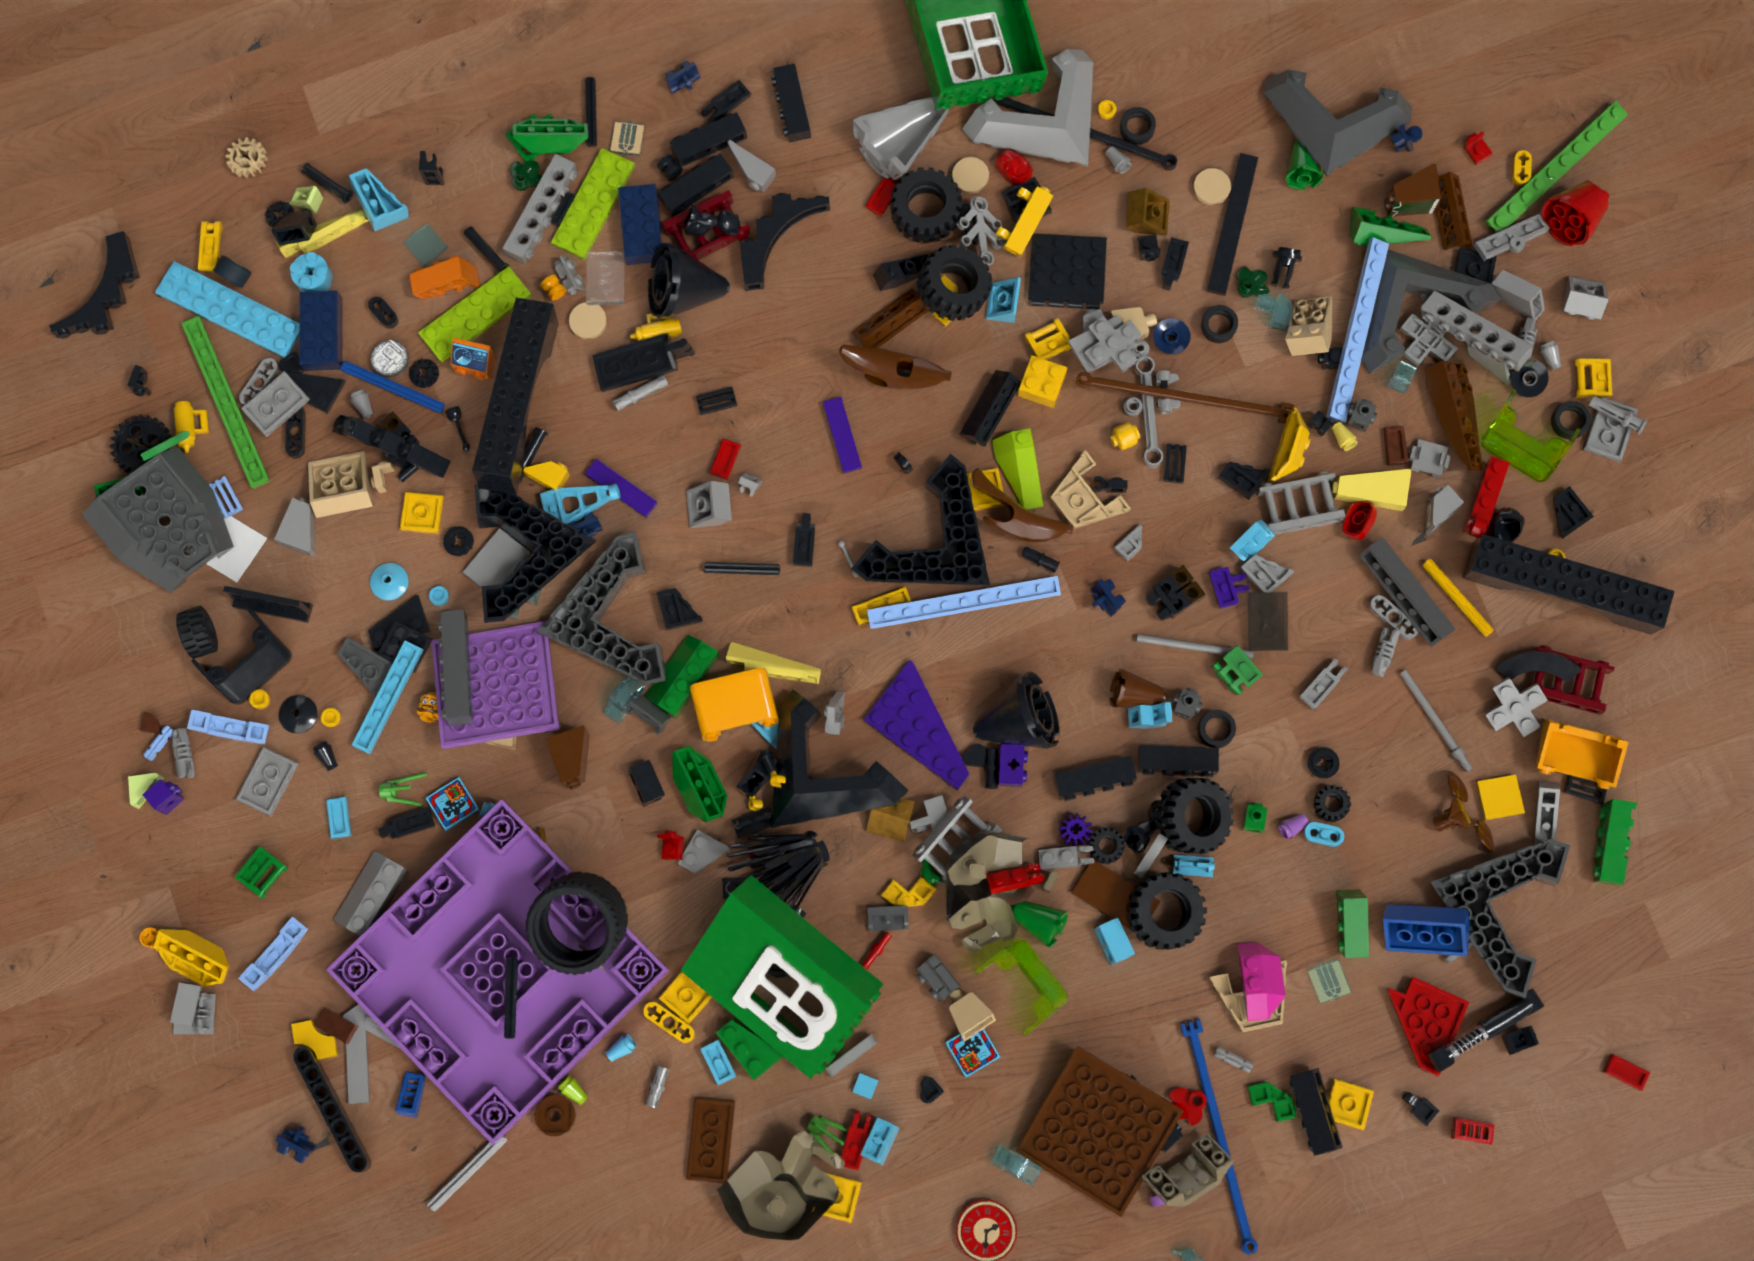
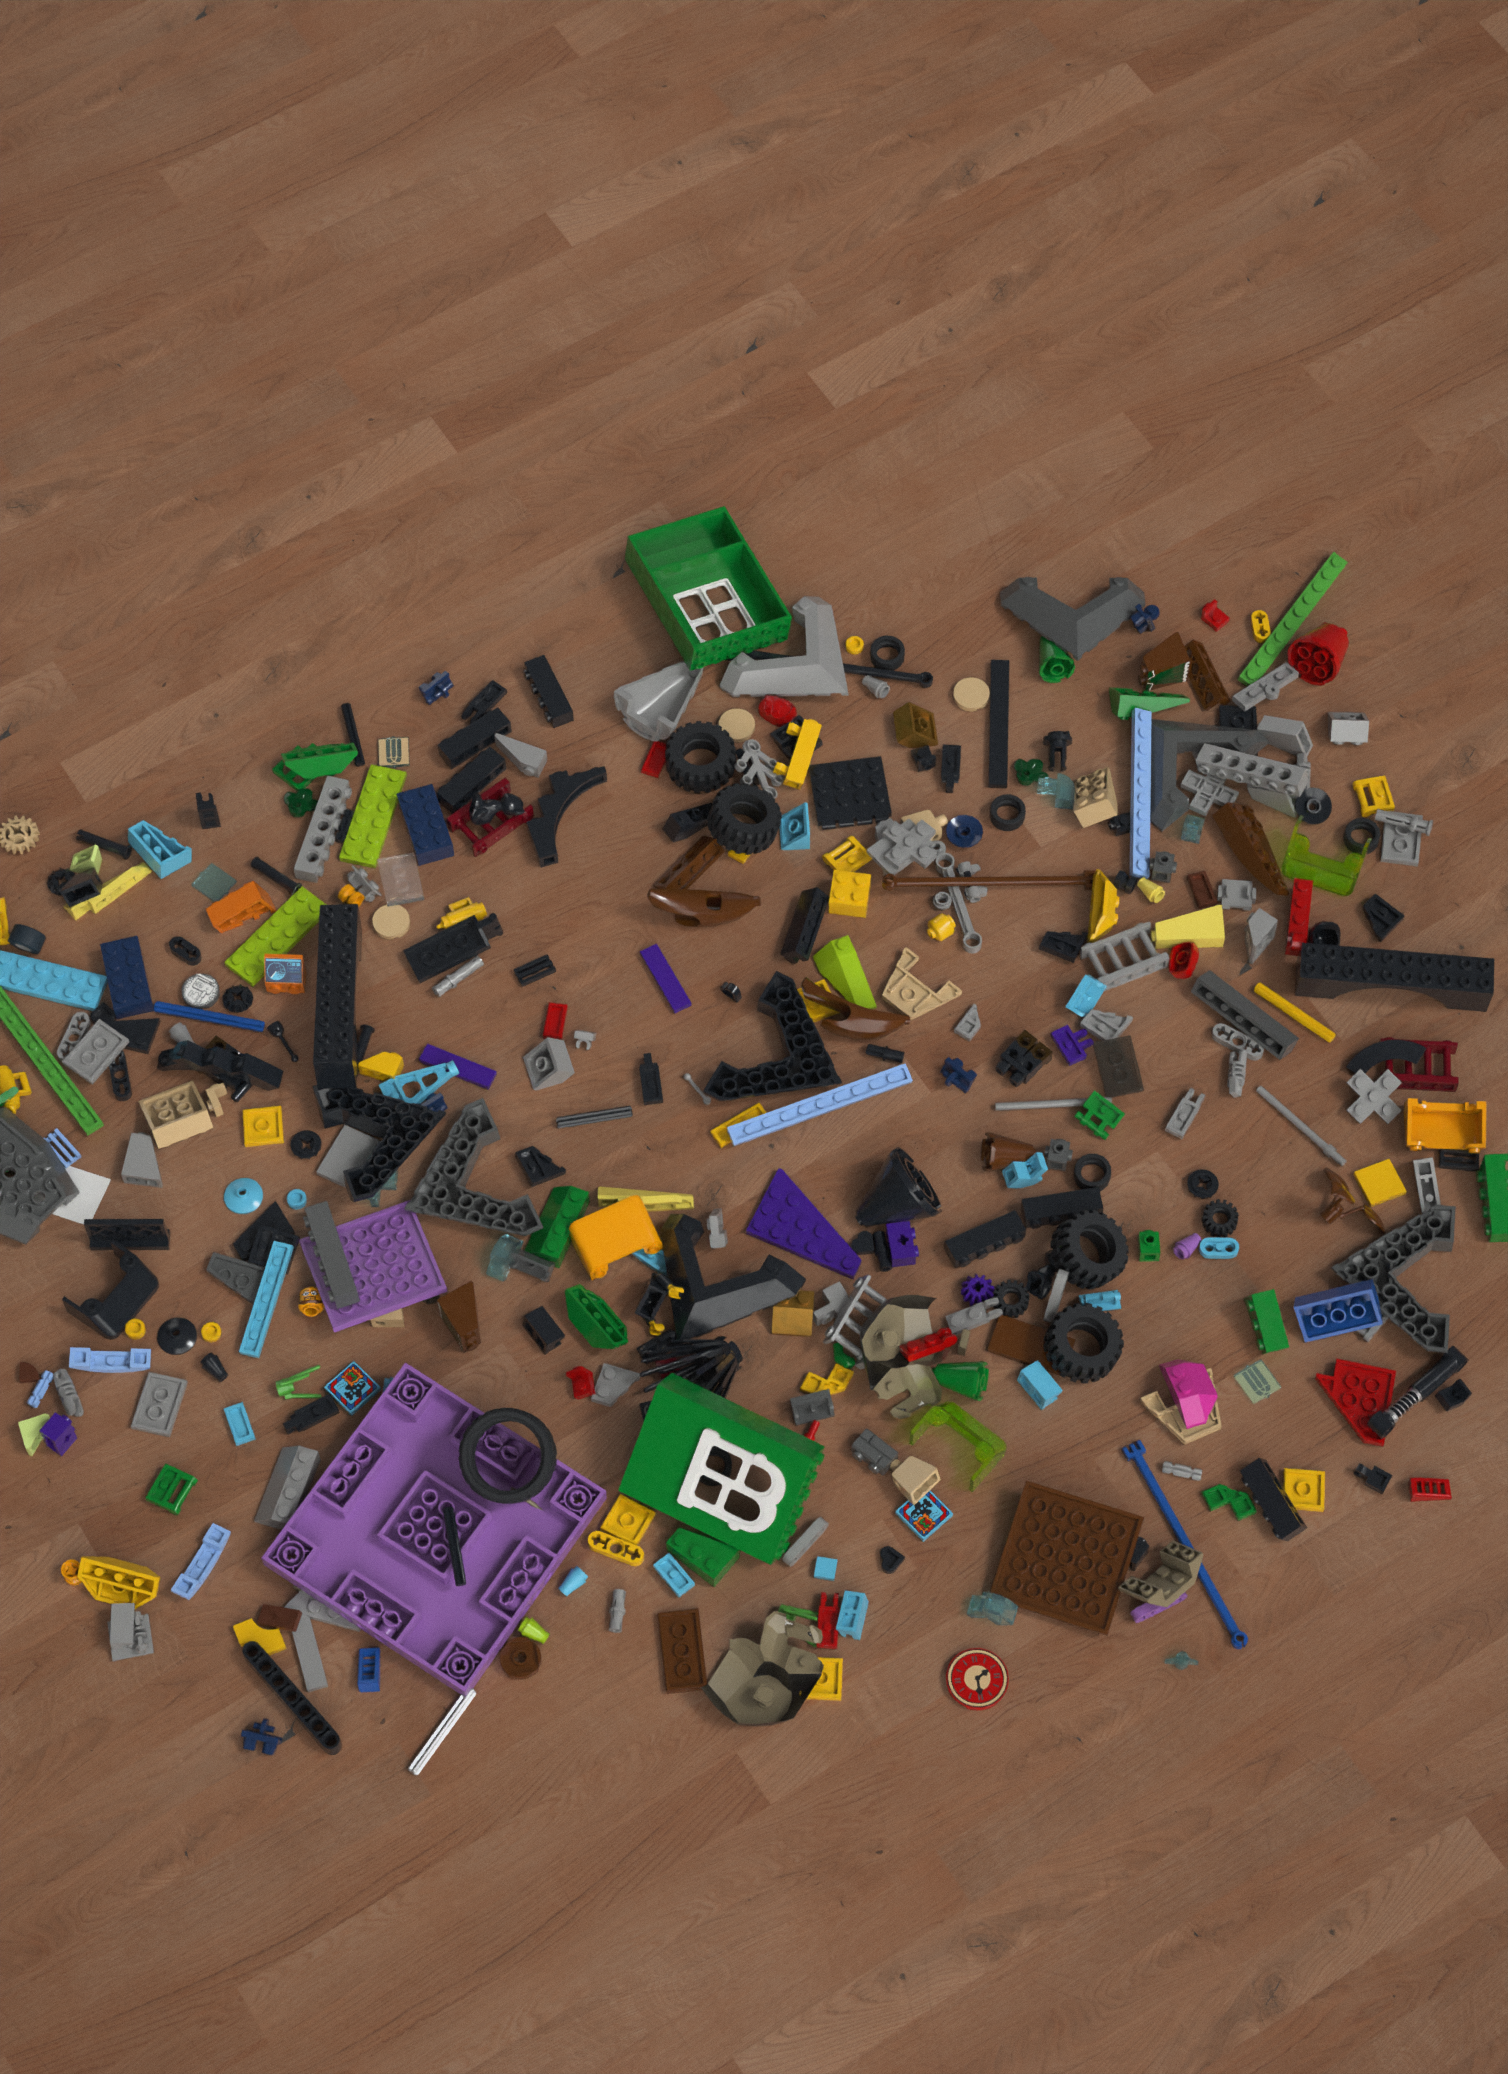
camera: 15 degrees left, 15 degrees down
(196, 632) = (61, 1273): black tyre -> none
(307, 265) = (106, 925): medium azure brick -> none
(669, 167) = (443, 770): black wheel -> none
(681, 282) = (476, 866): black cone -> none
(1115, 485) = (939, 974): black plate -> none
(1176, 448) = (993, 931): black tile -> none
(1183, 1099) = (1150, 1526): red plate -> none
(1551, 354) = (1329, 782): light grey cone -> none

